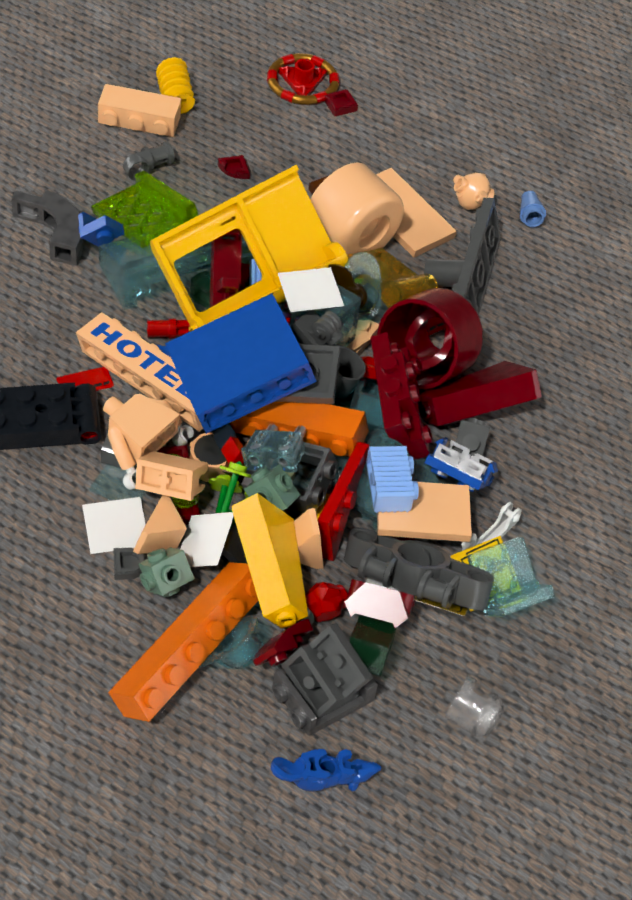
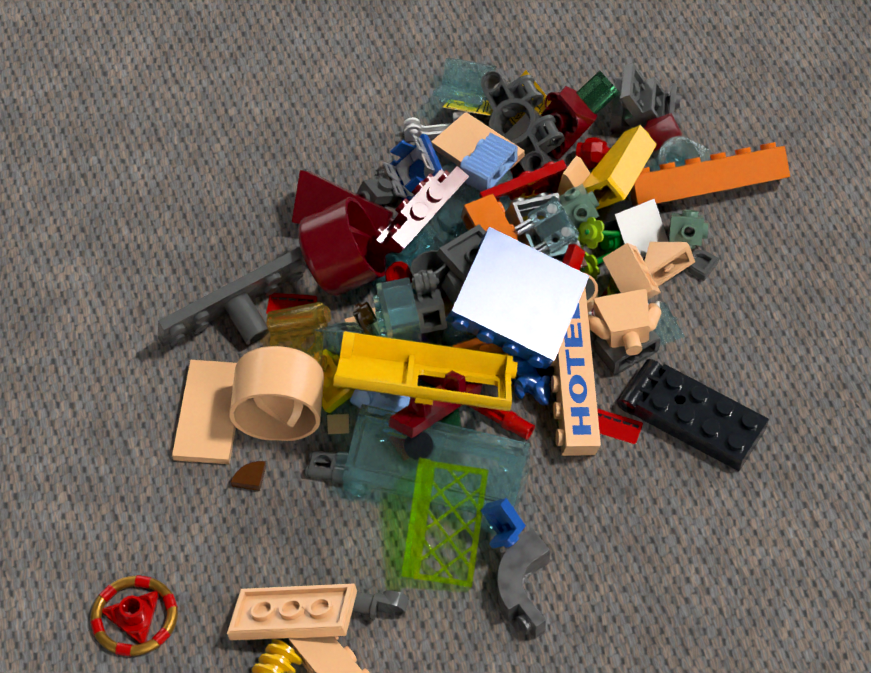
camera: 130 degrees left, 5 degrees up
(113, 524) = (687, 298): white sticker -> none
(195, 114) = (292, 612): none -> light nougat tile
(234, 165) = (301, 552): dark red tile -> none
(310, 289) = (408, 313): white sticker -> none
(318, 771) = (695, 63): blue animal -> none
(341, 102) = (131, 561): dark red tile -> none
(472, 190) = (137, 380): light nougat piece -> none
(474, 713) = (564, 31): clear helmet -> none
(531, 211) = (105, 340): medium blue cone -> none

